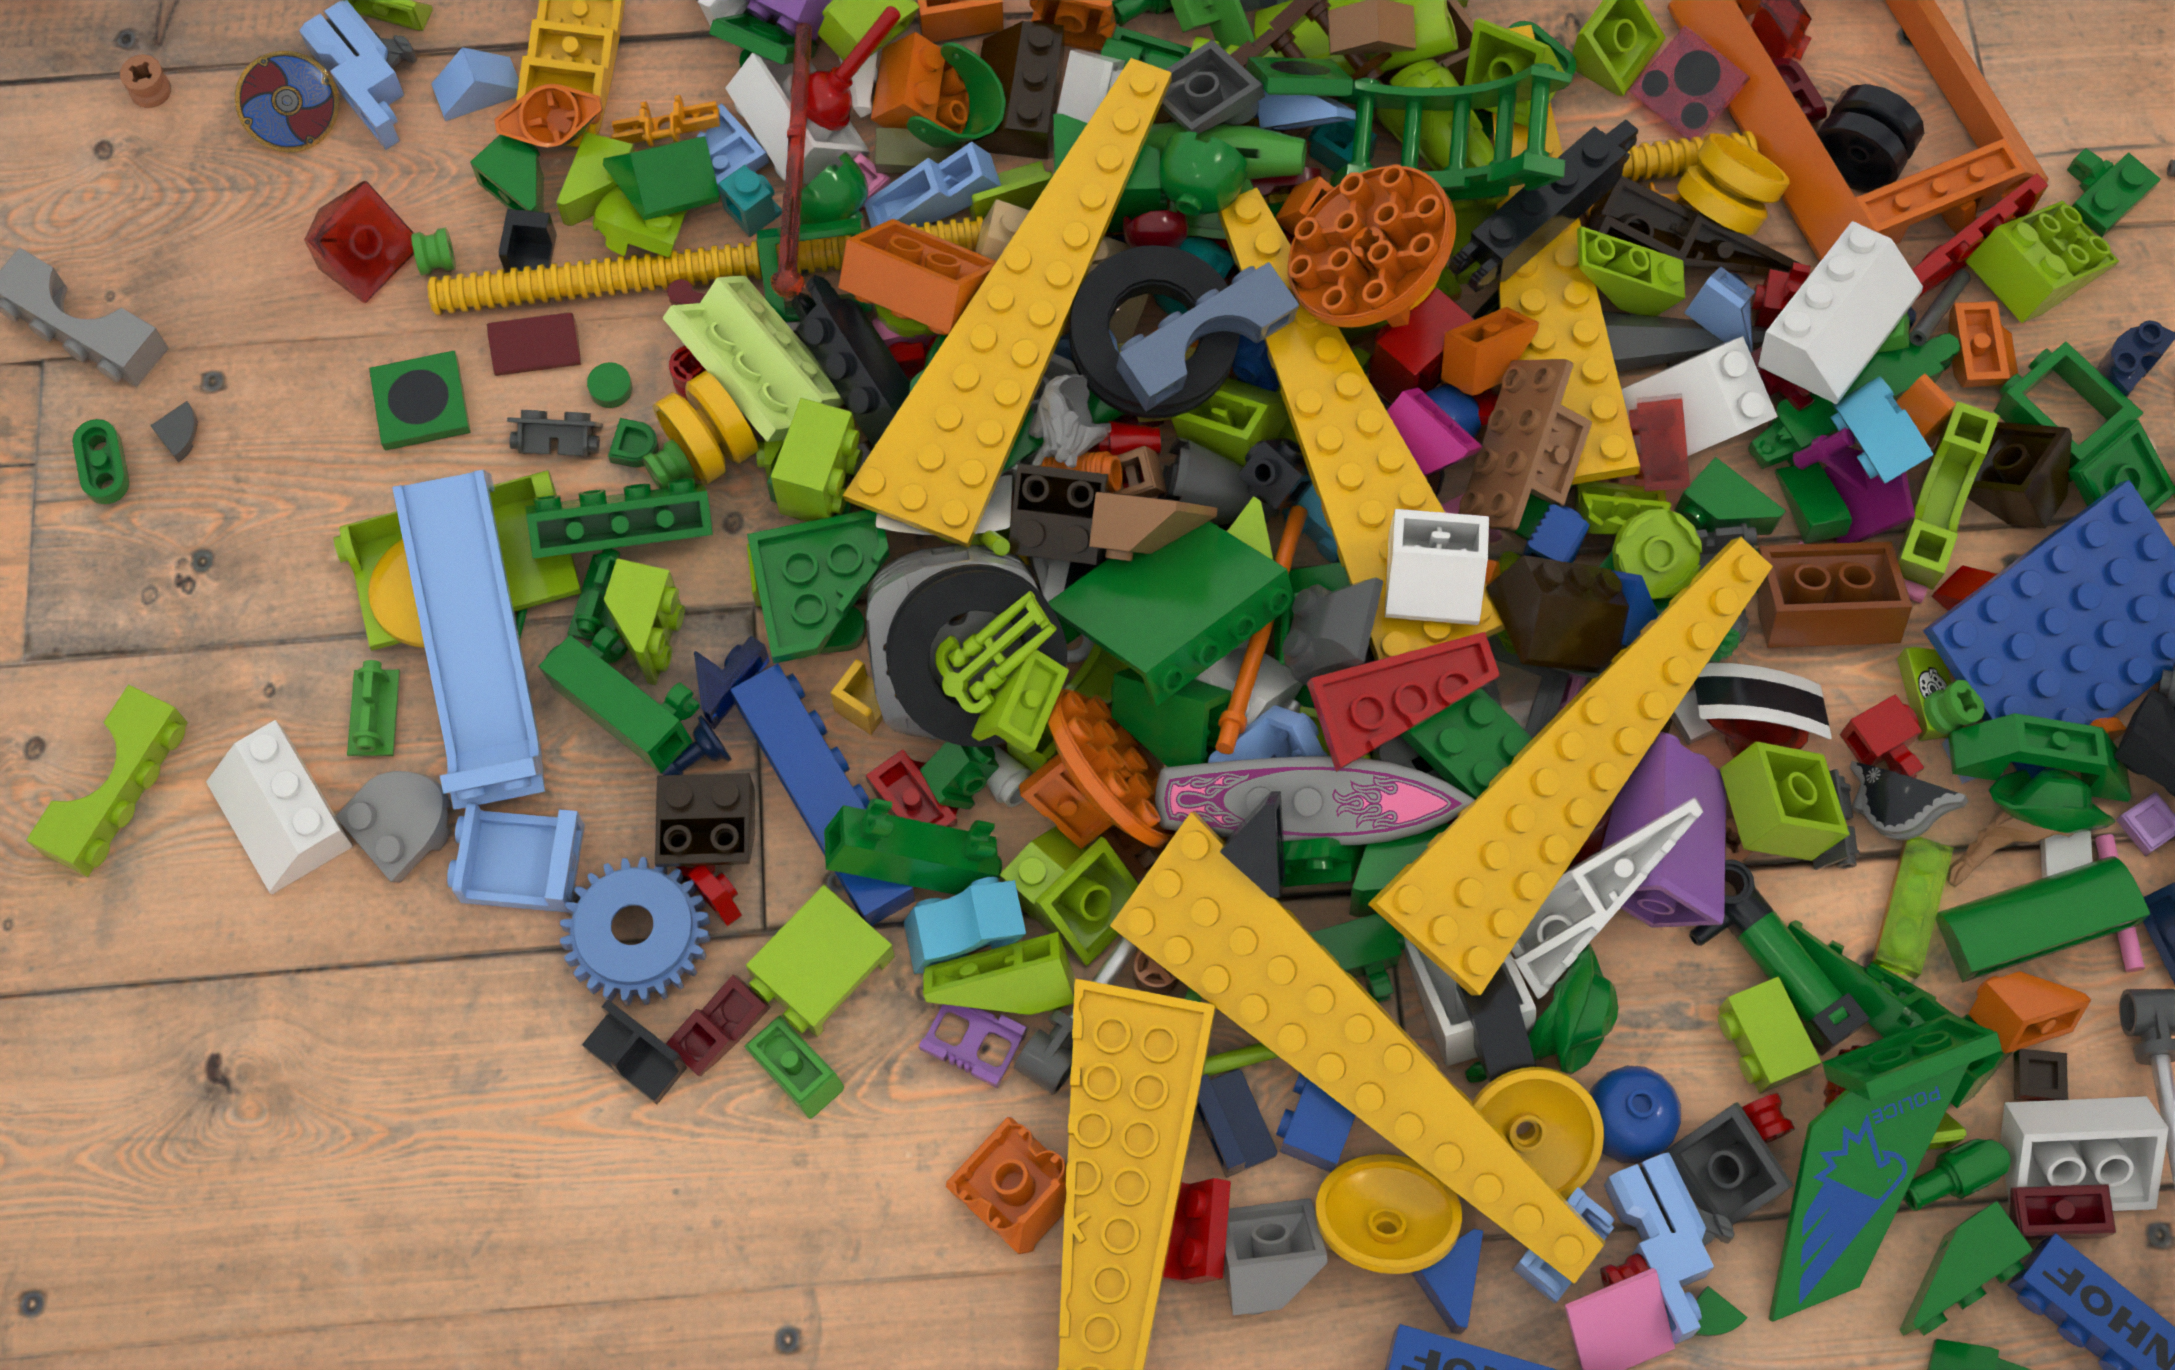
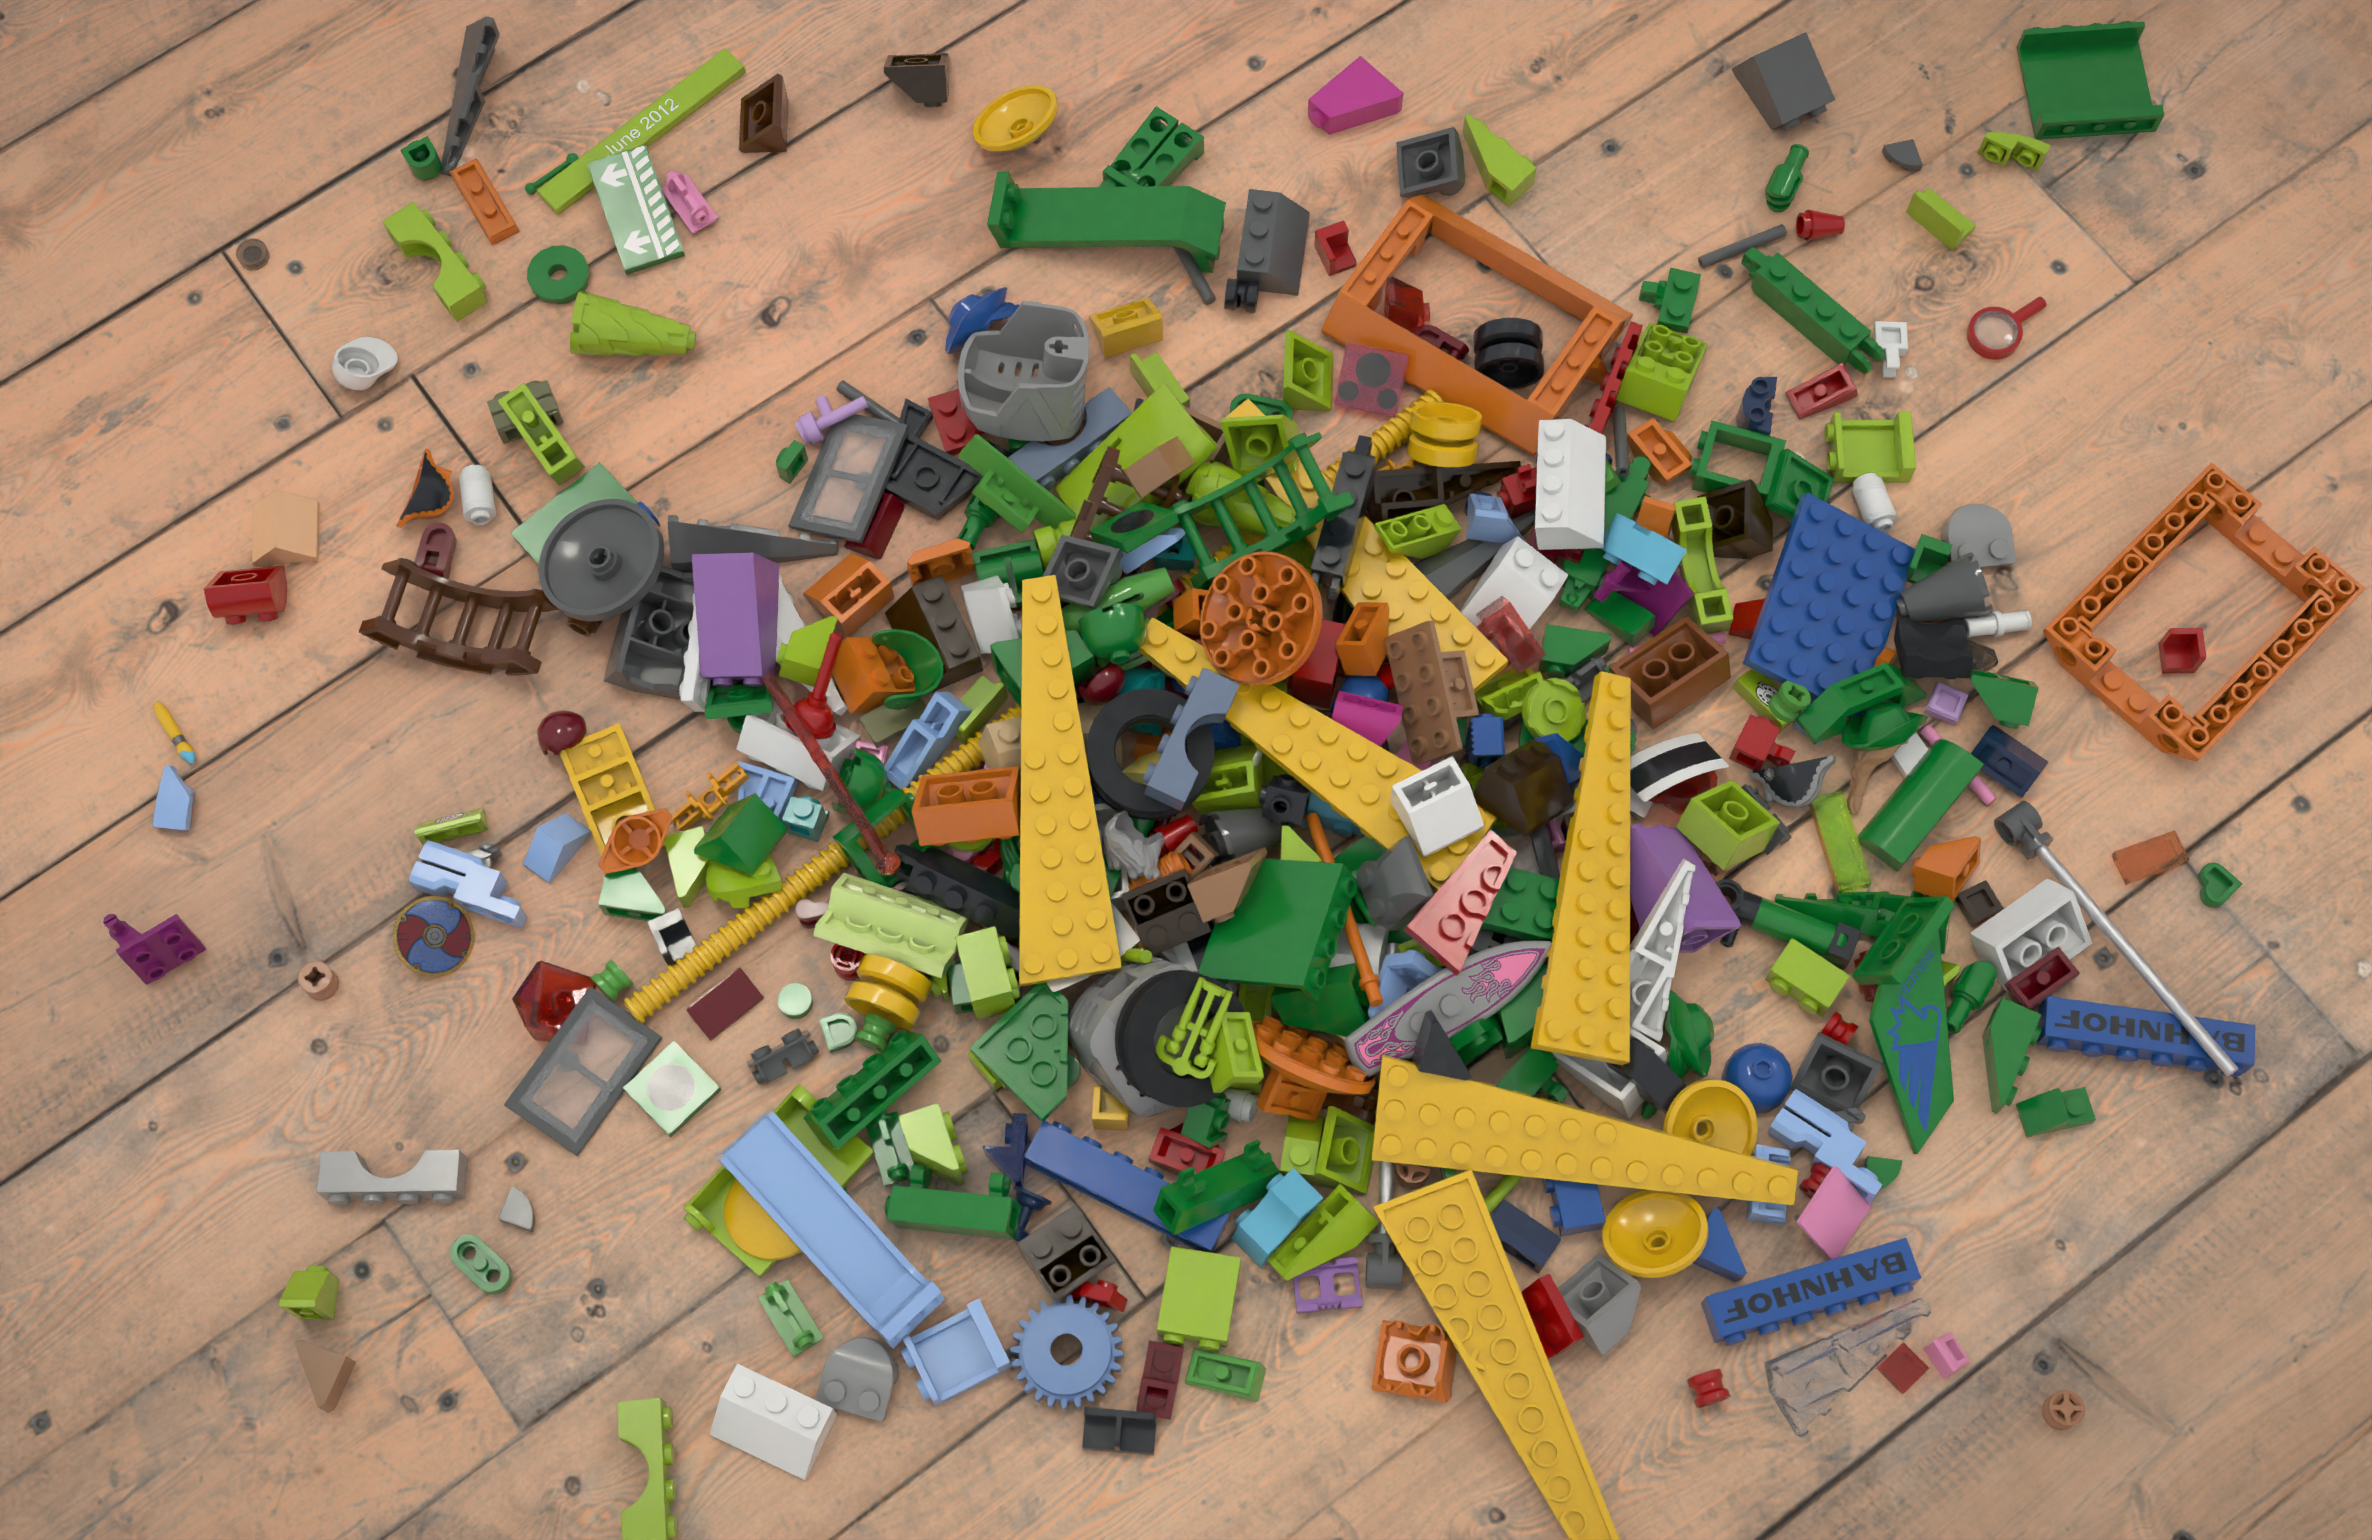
camera: 30 degrees left, 0 degrees up
(339, 325) = (583, 1071): none -> clear door

